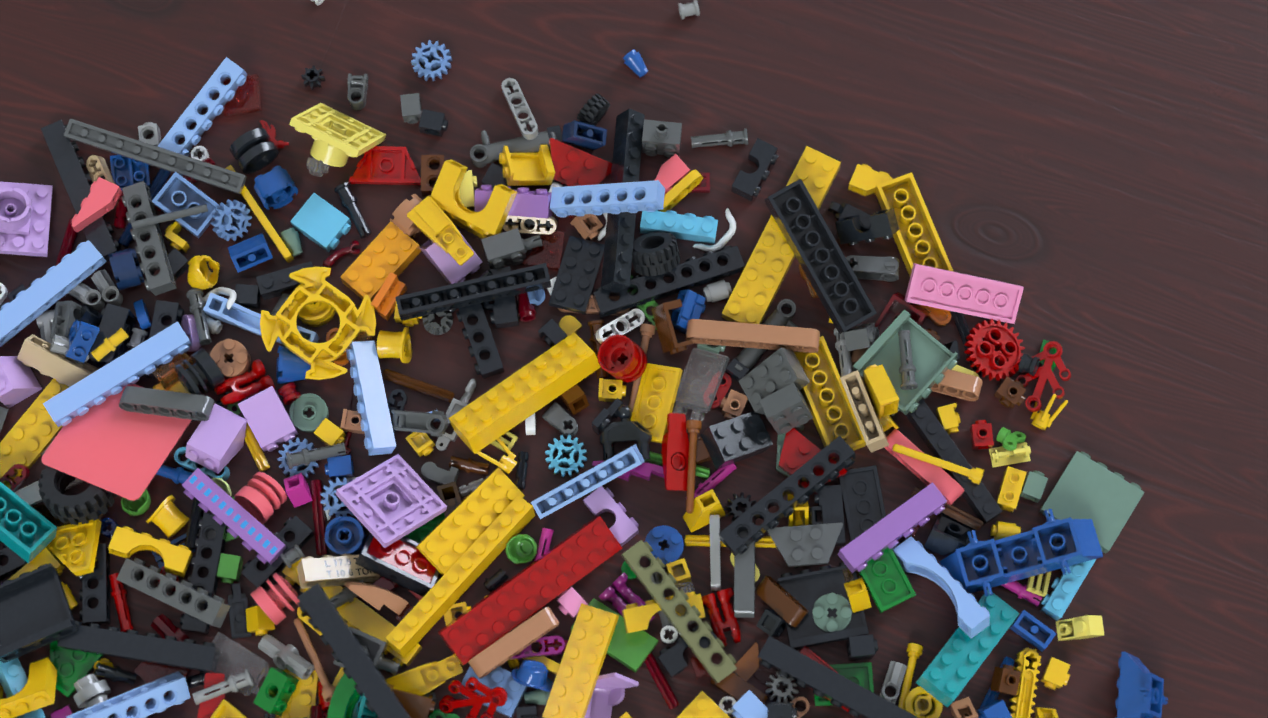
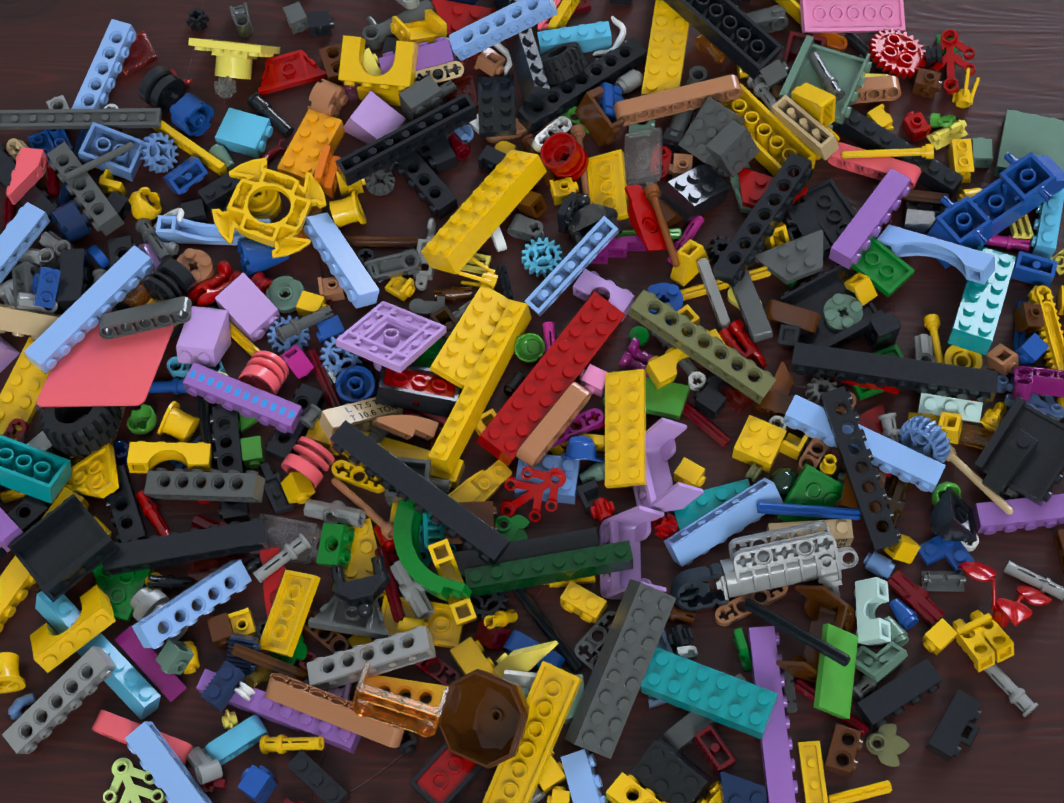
camera: 15 degrees left, 10 degrees down
(109, 344) = (74, 281): yellow pin -> none
(440, 230) = (358, 97): yellow piece -> none

